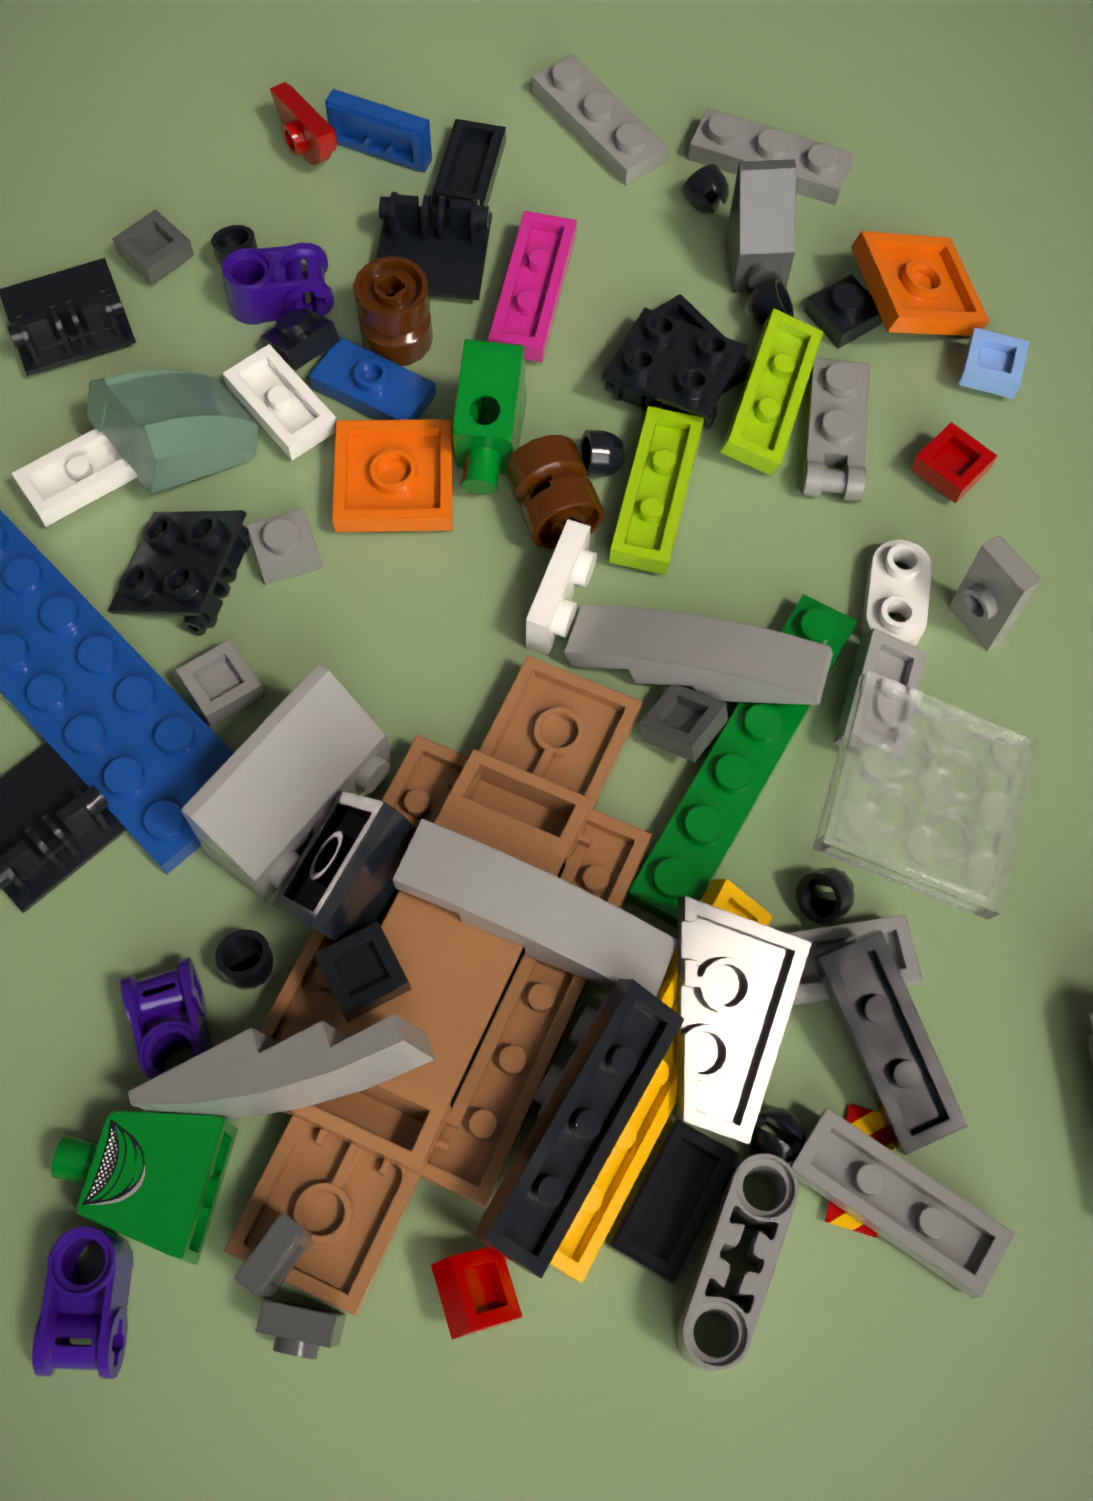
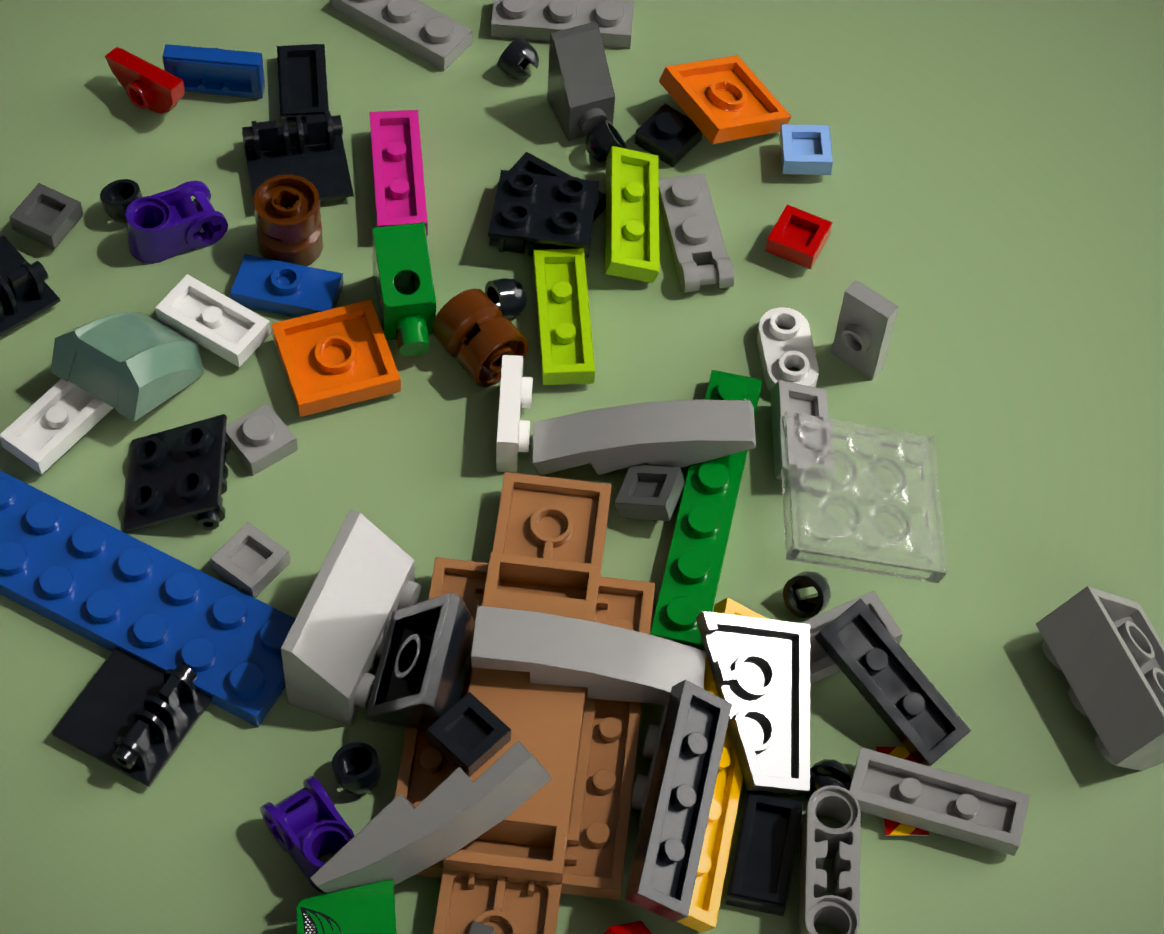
camera: 20 degrees left, 10 degrees down
(301, 336) = (211, 261): black plate -> none

